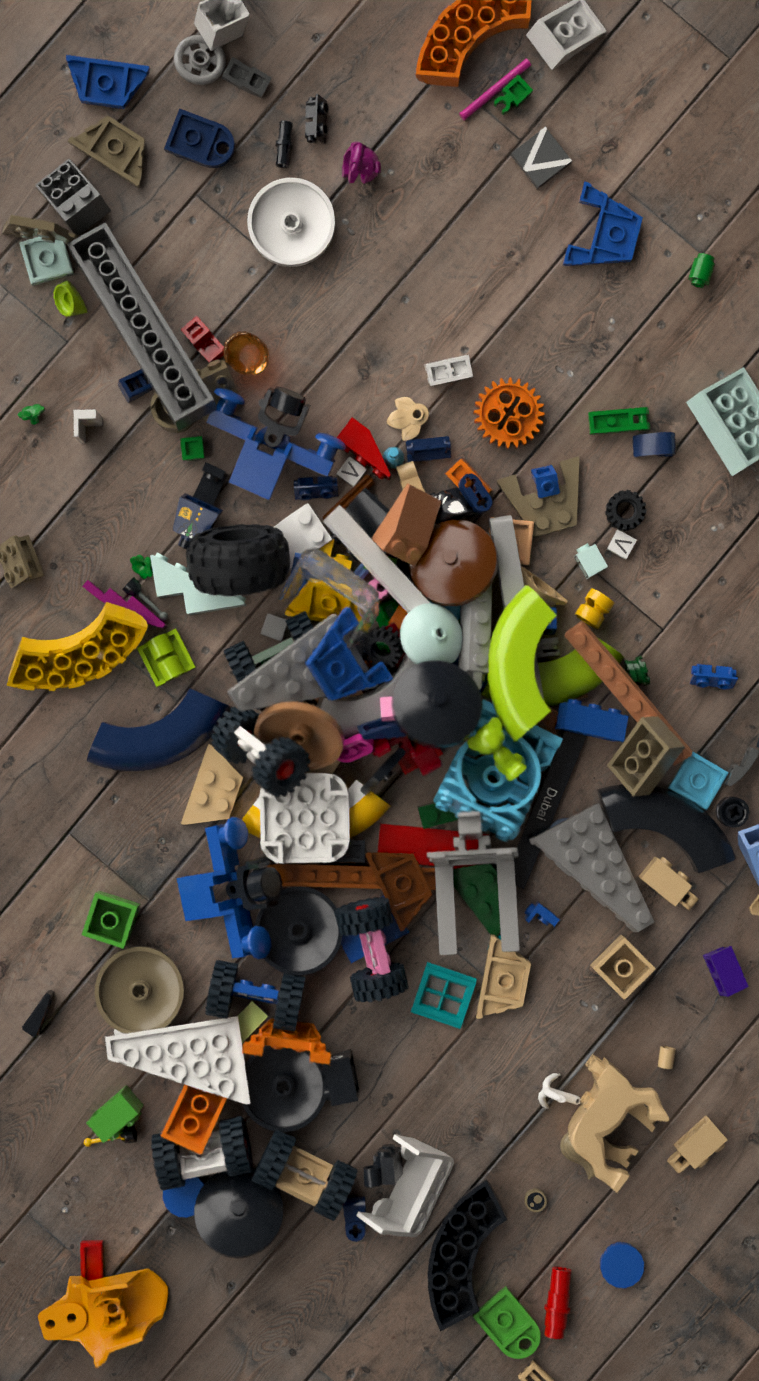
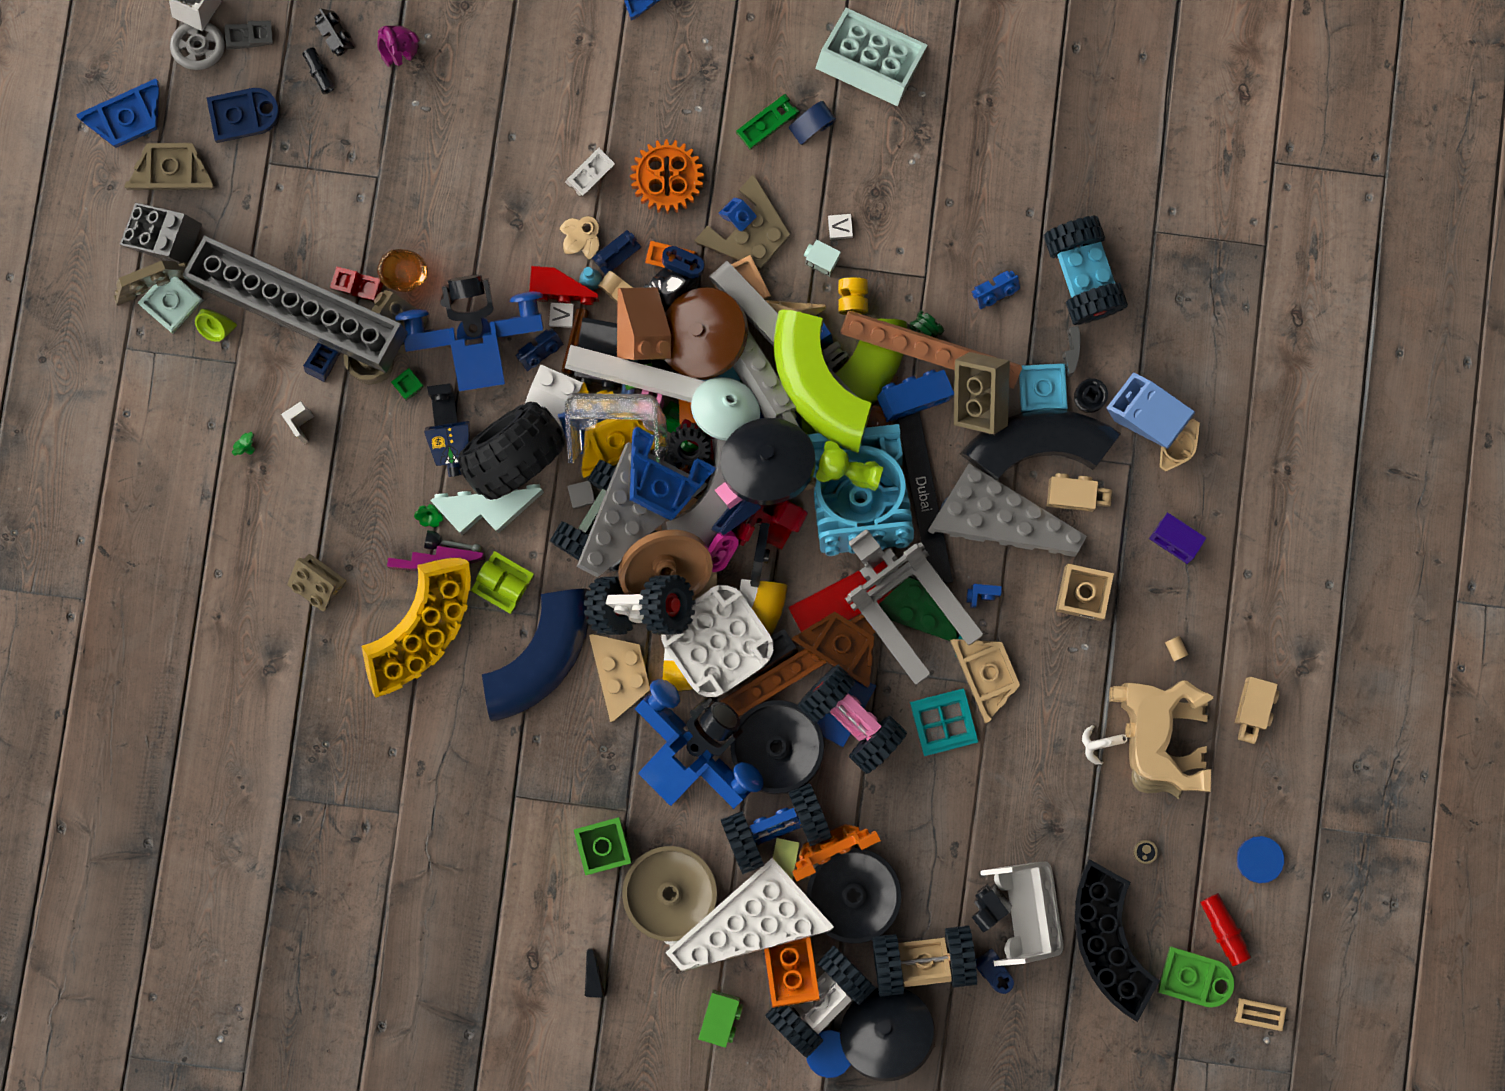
camera: 30 degrees left, 5 degrees down
(128, 1135) = (742, 1033): black hinge -> none
(291, 222) = (368, 132): white dish -> none
(341, 1079) = (899, 853): black slope -> none
(432, 816) = (831, 566): dark green brick -> none
(612, 513) = (824, 181): black tyre -> none

